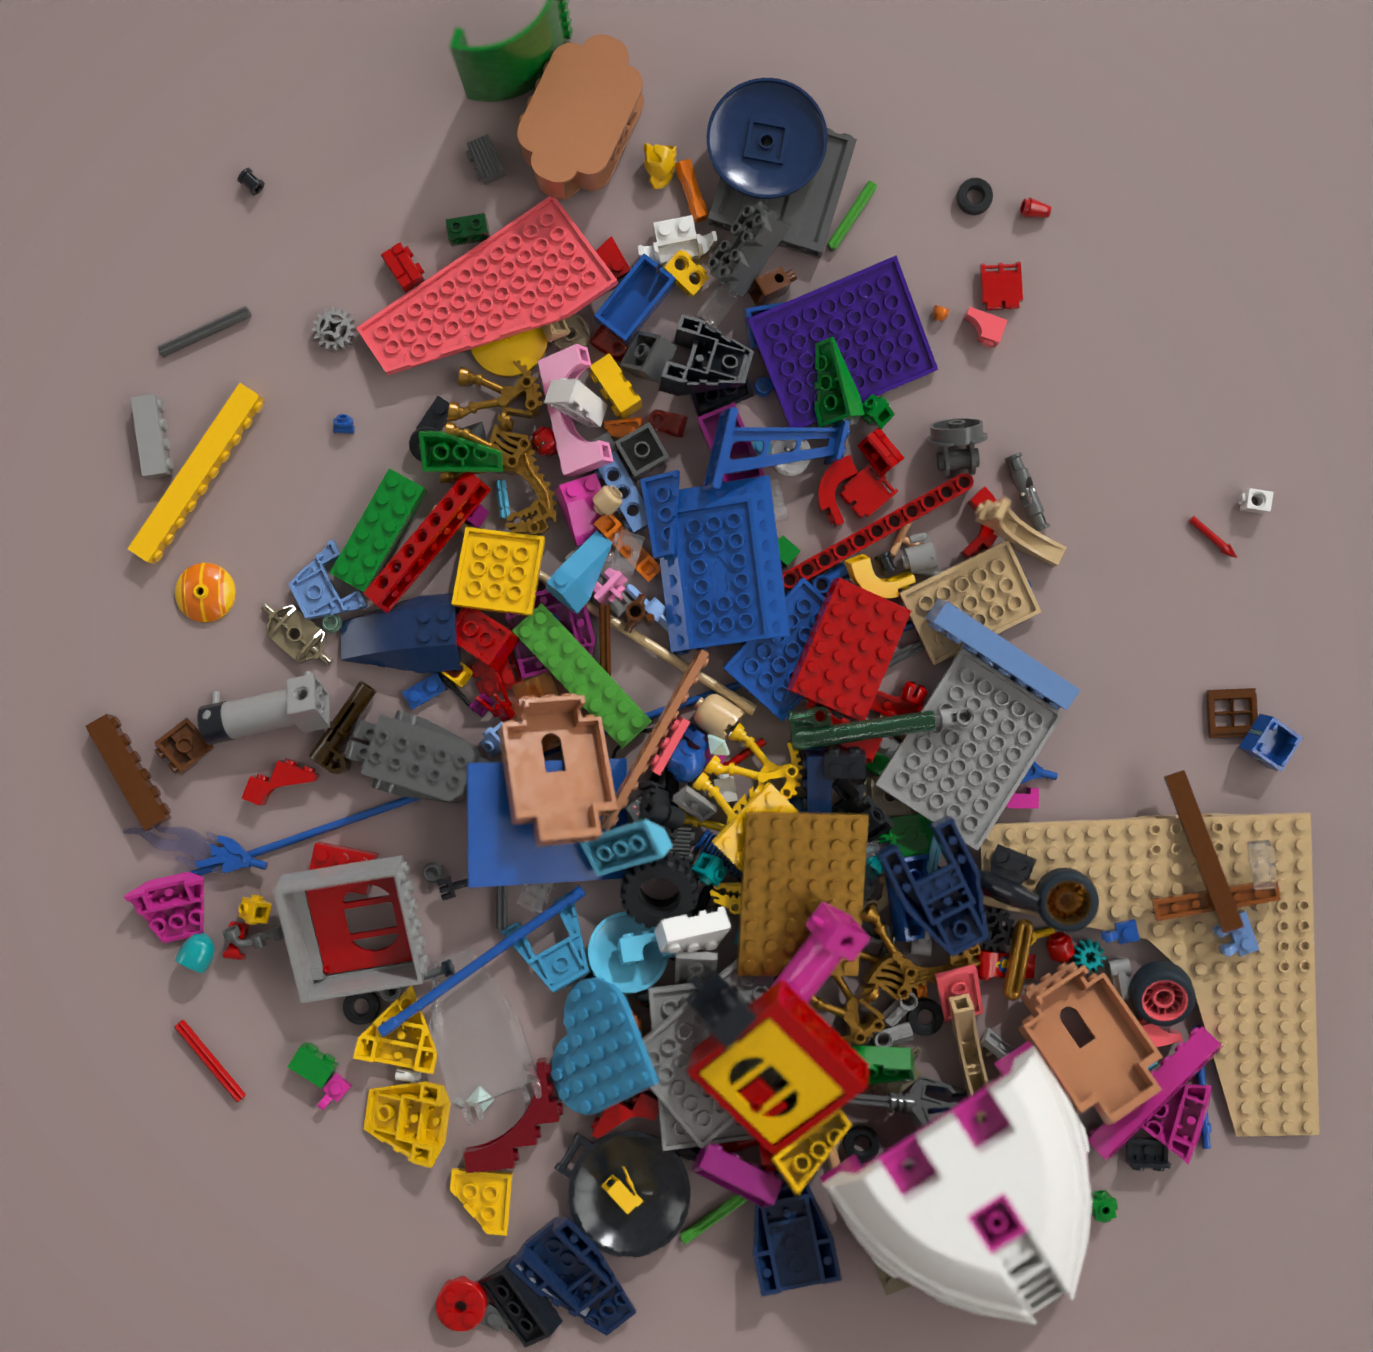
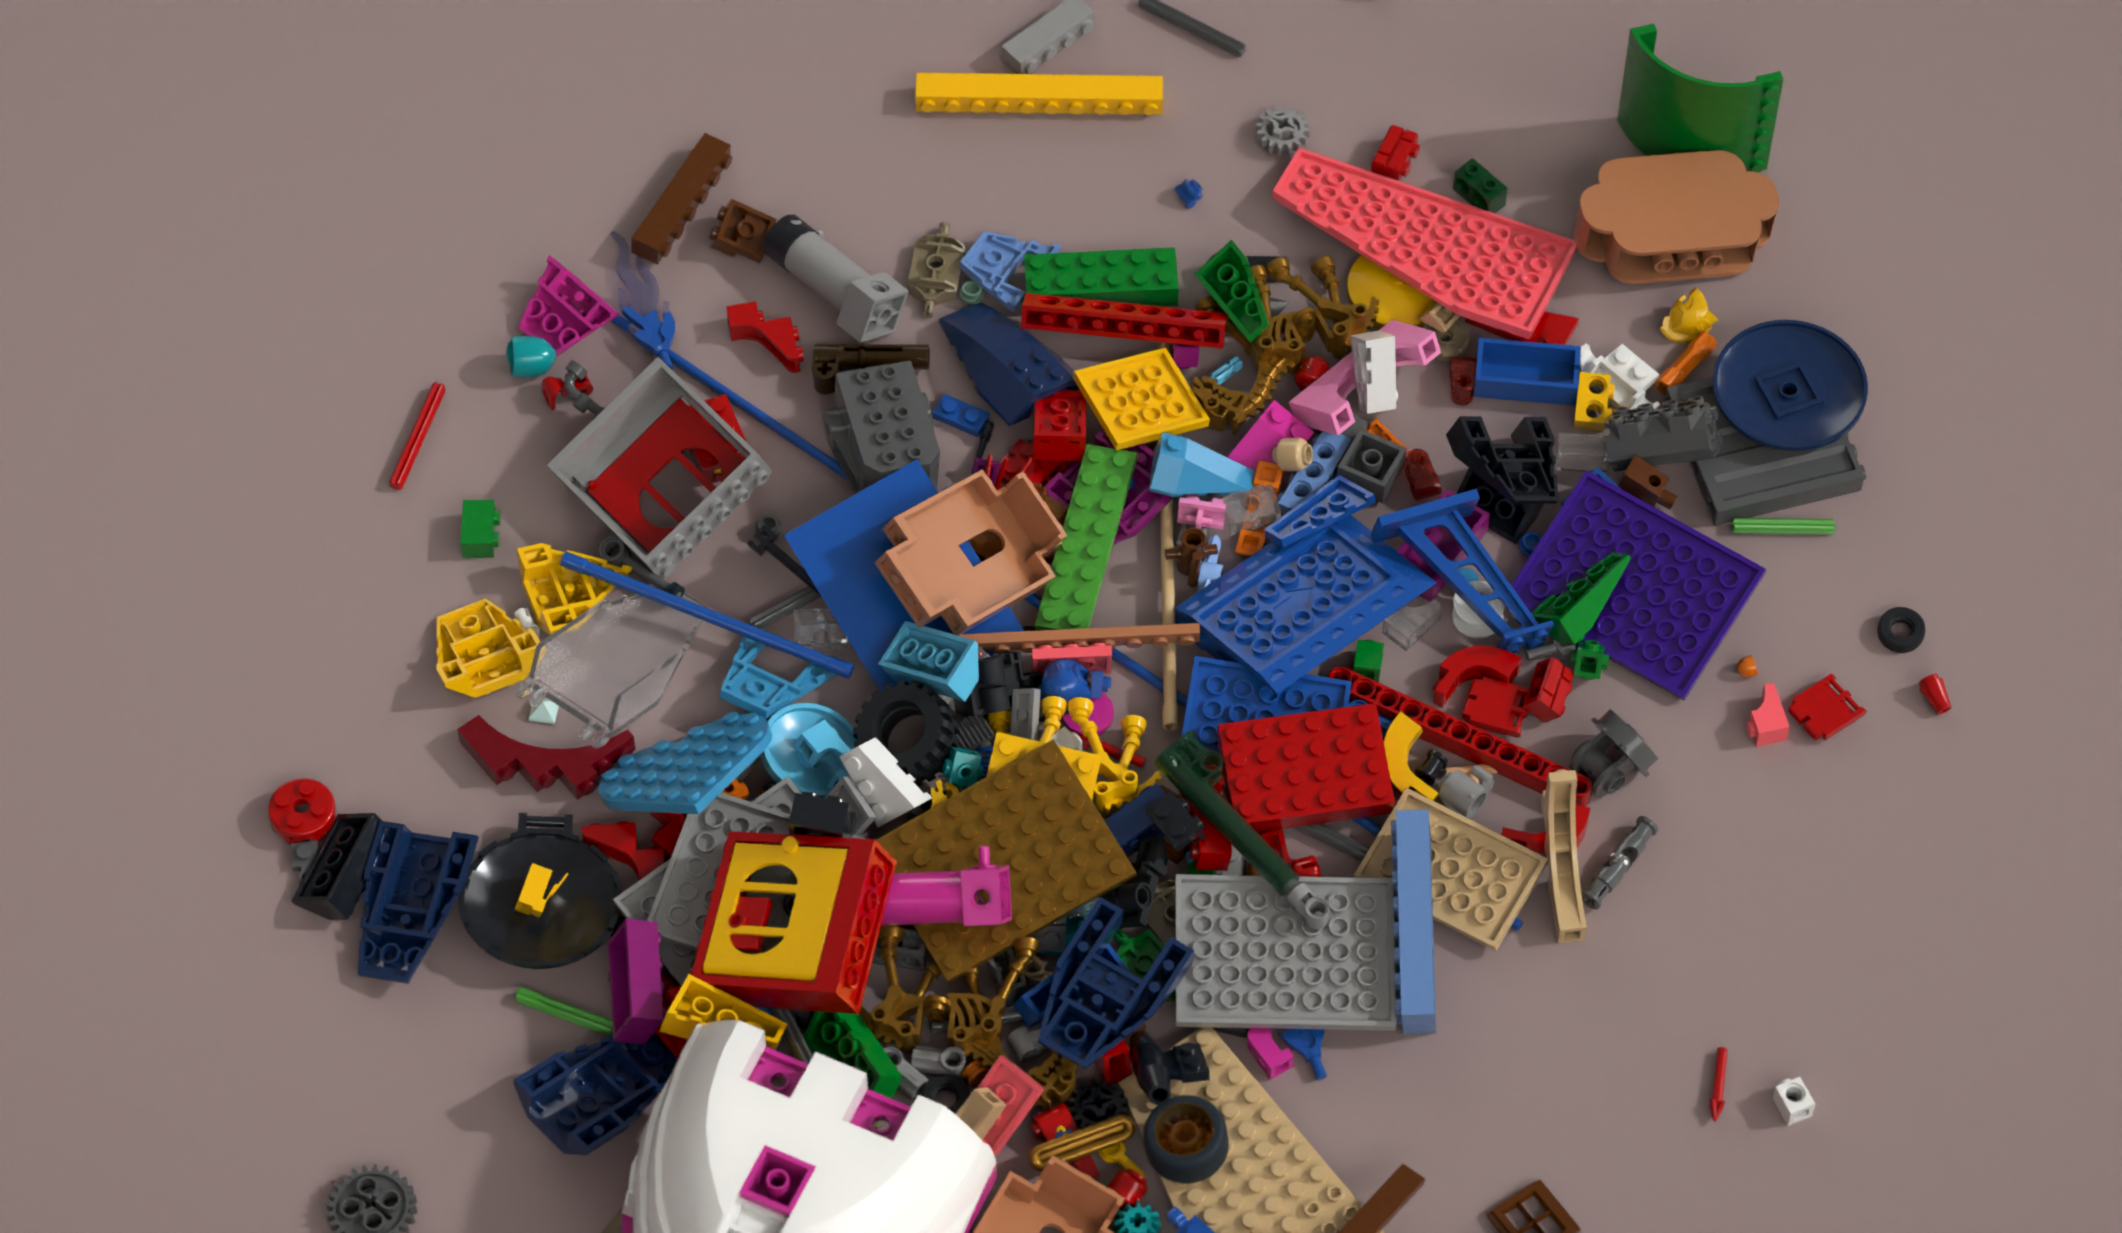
camera: 60 degrees right, 30 degrees down
(217, 595) = (919, 178): orange dish -> none
(254, 910) = (610, 372): yellow brick -> none
(335, 1090) = (463, 567): dark pink plate -> none
(357, 1018) = (574, 526): black tyre -> none
(460, 677) = (1001, 434): yellow rock -> none
(485, 1197) = (438, 770): yellow plate -> none
(486, 160) = (1566, 165): dark grey brick -> none
(604, 637) = (1143, 540): reddish brown axle -> none
(615, 387) = (1420, 407): yellow wedge -> none
(648, 356) = (1485, 404): dark grey brick -> none
(717, 715) = (1137, 691): tan cylinder -> none
(717, 745) = (1104, 703): light aqua slope -> none

